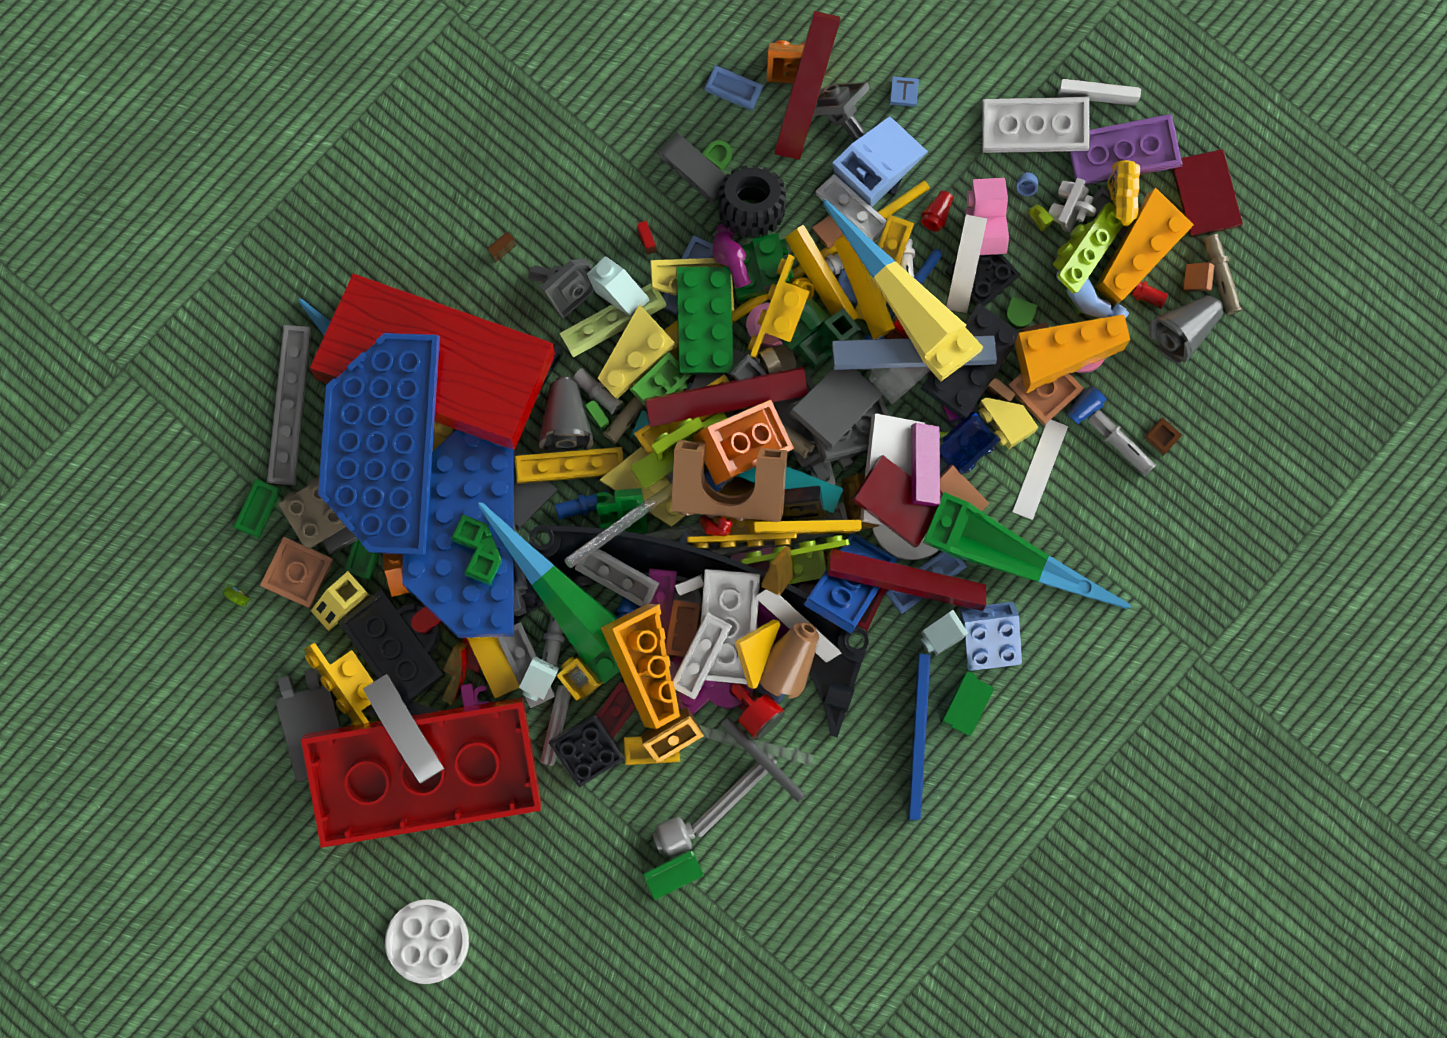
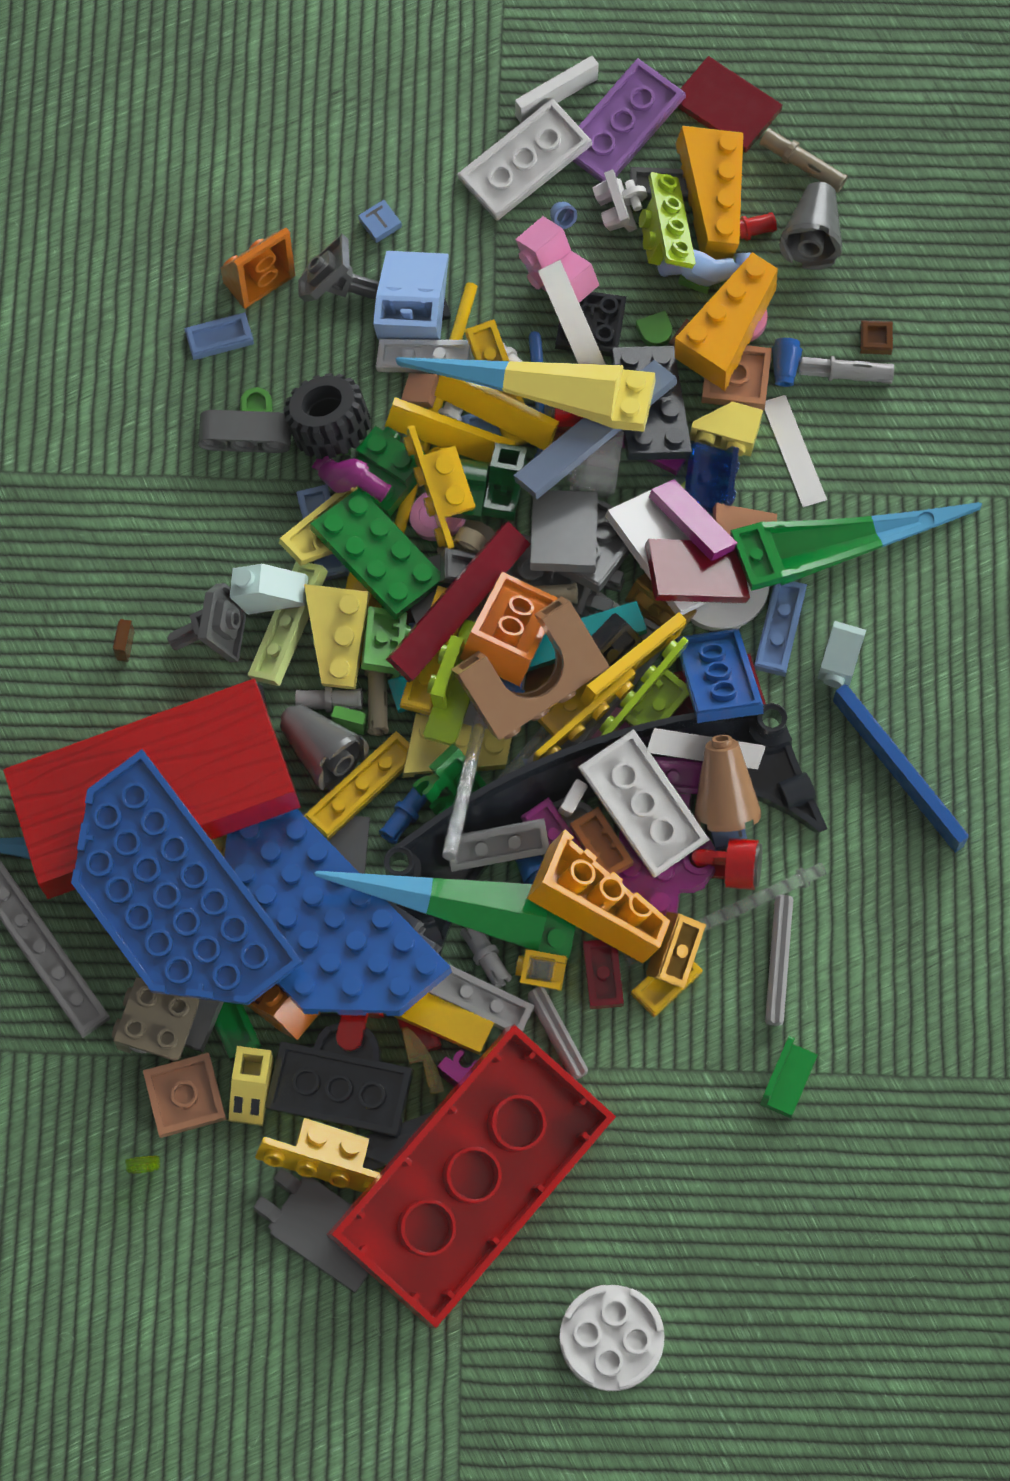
camera: 40 degrees left, 10 degrees down
(257, 508) = (92, 1068): green tile -> none
(403, 729) = (421, 1141): light grey slope -> none
(486, 557) = (339, 908): green tile -> none
(538, 679) = (508, 994): light aqua slope -> none
(587, 749) = (608, 1028): black tile -> none
(646, 237) = (255, 526): red tile -> none
(673, 837) = (759, 1041): light grey head -> none
(701, 655) = (641, 848): white tile -> none
(721, 528) = (550, 727): red arm -> none
(755, 650) = (688, 804): yellow tile -> none
(762, 759) = (778, 902): dark grey bar -> none
(779, 572) = (647, 712): pearl gold slope -> none
(807, 84) = (294, 268): dark red tile -> none
(906, 579) = (765, 634): dark red tile -> none
(936, 214) = (504, 302): red cone -> none
(968, 704) = (915, 705): green panel -> none
(992, 636) = (890, 625): medium blue bracket -> none
(1000, 391) = (699, 406): medium nougat tile -> none
(1040, 217) = (599, 233): lime tile -> none
(1124, 190) = (655, 149): yellow rock -> none
(1198, 277) = (785, 177): nougat tile -> none

